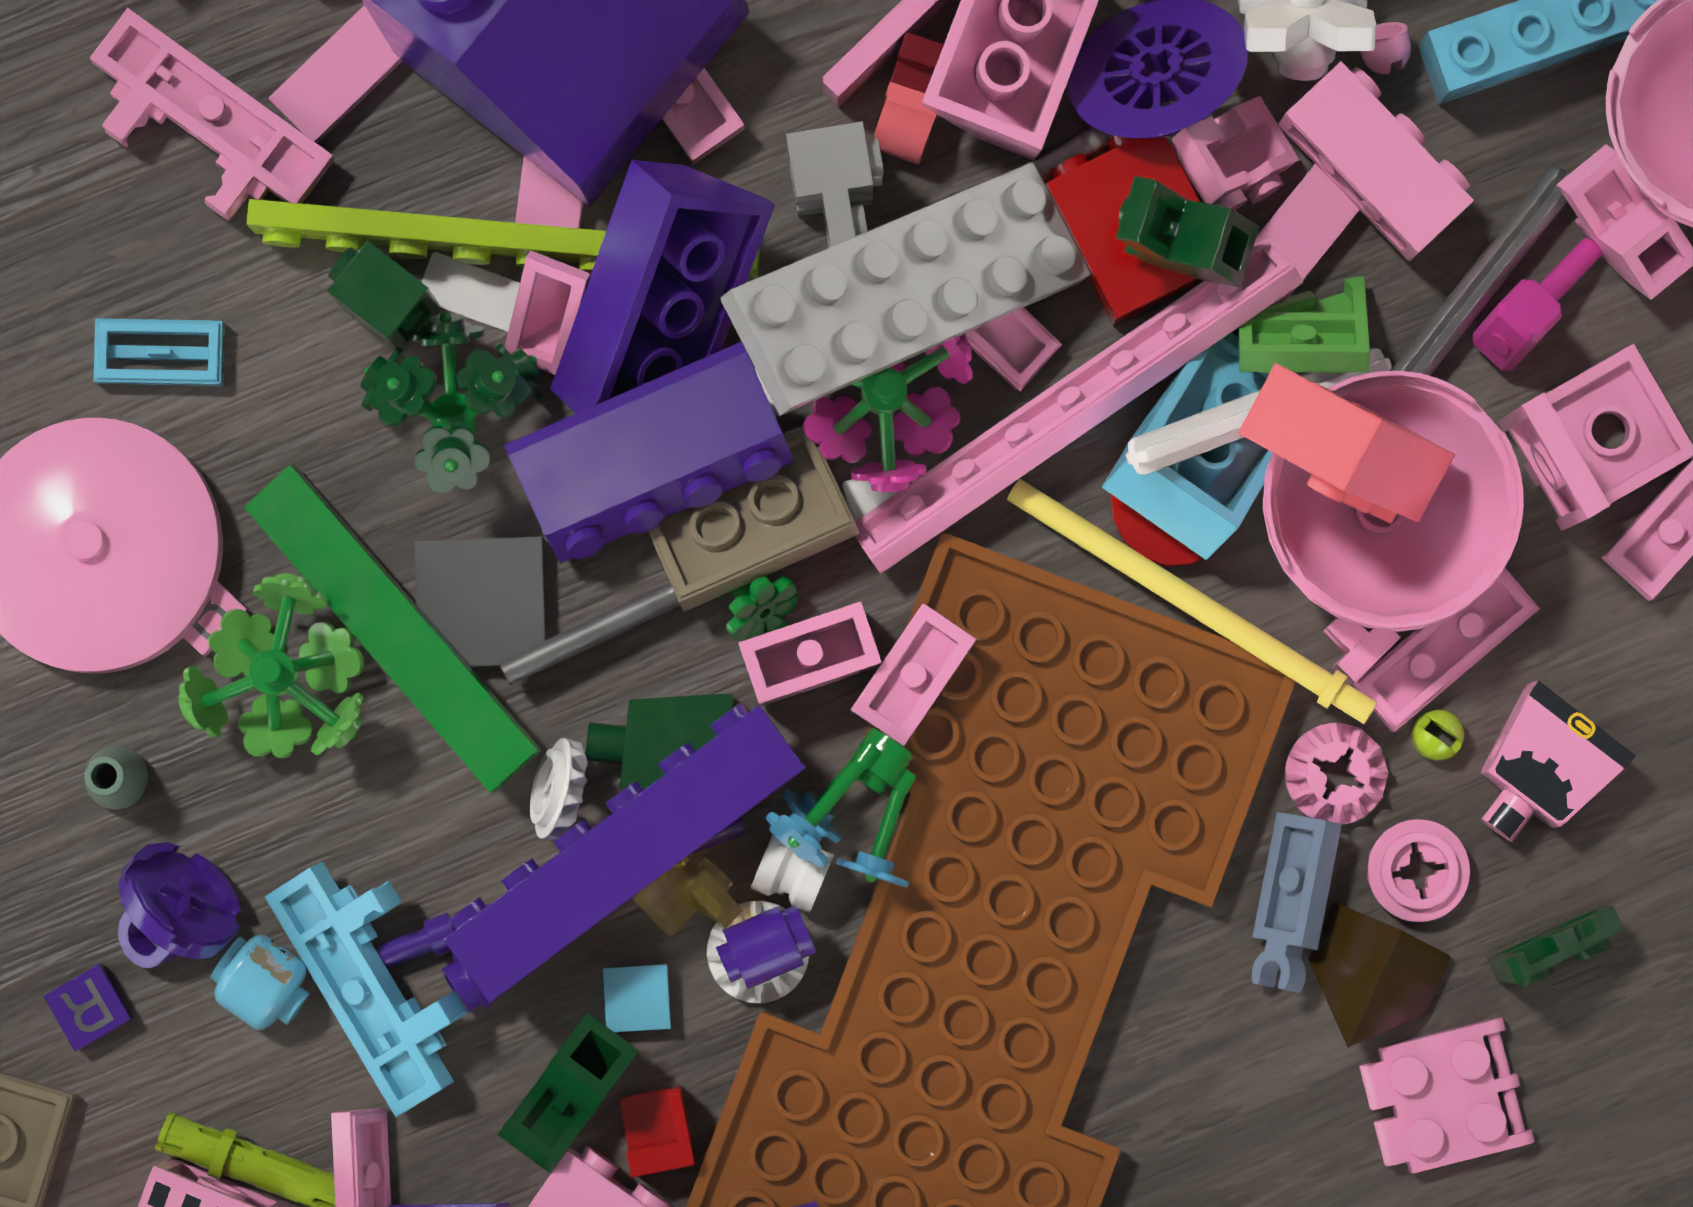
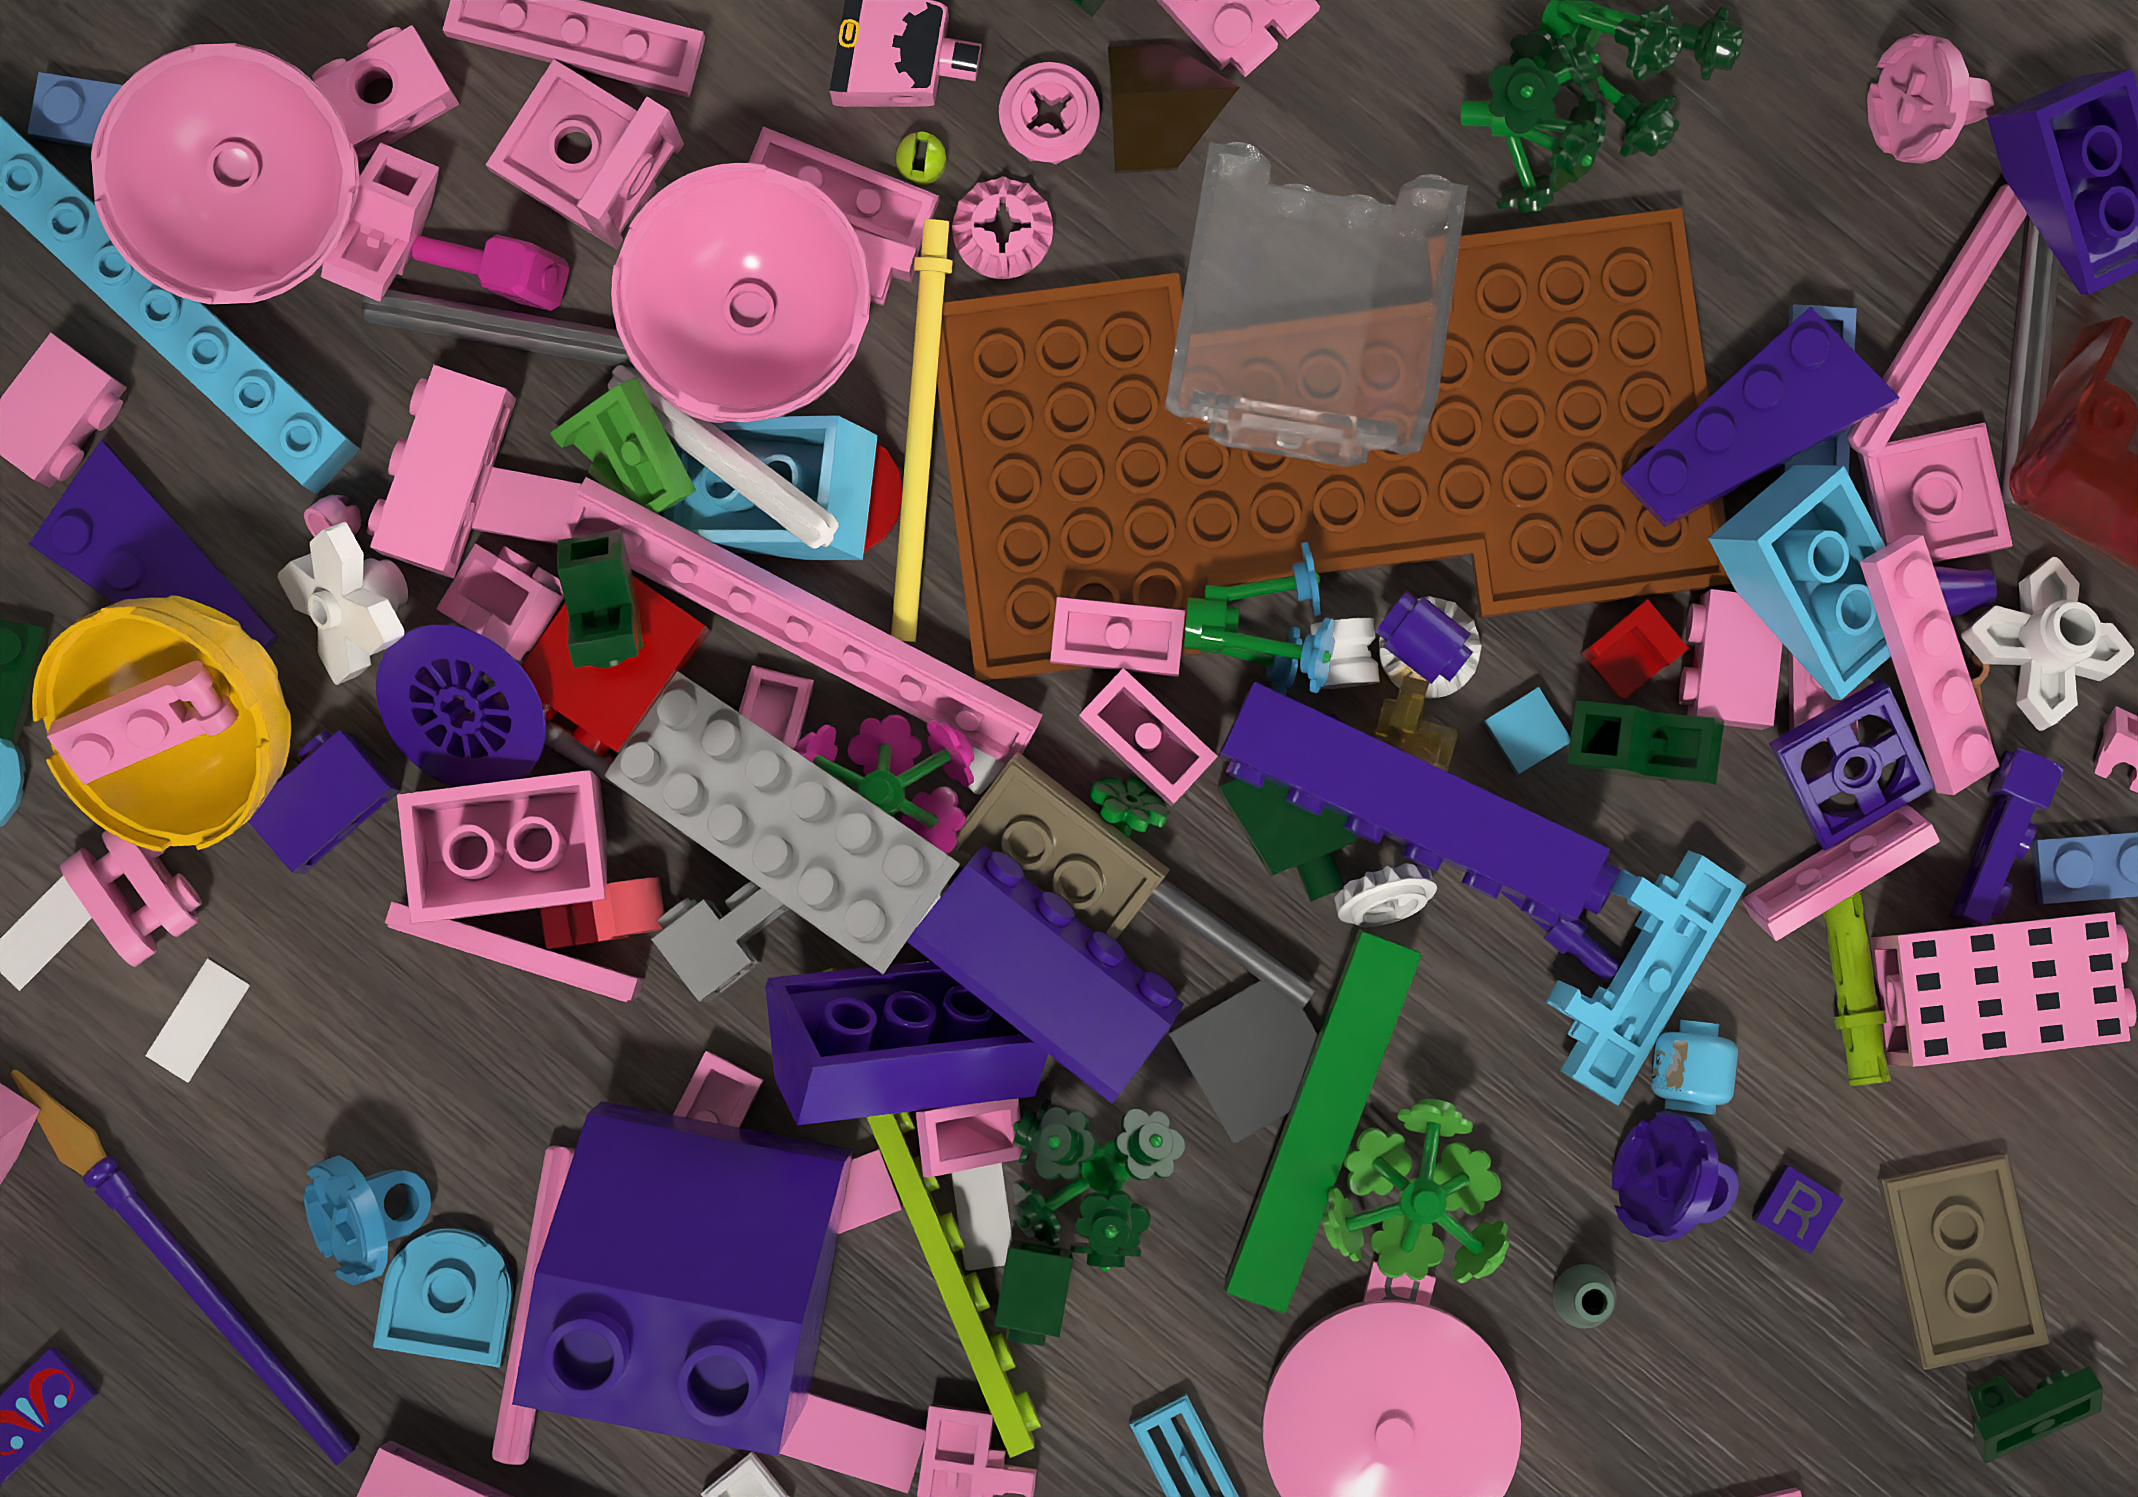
camera: 115 degrees left, 0 degrees up
(1110, 999) = (1314, 313): none -> clear windscreen
(1293, 897) = (1124, 208): sand blue plate -> none
(1346, 447) = (719, 351): coral wedge -> none

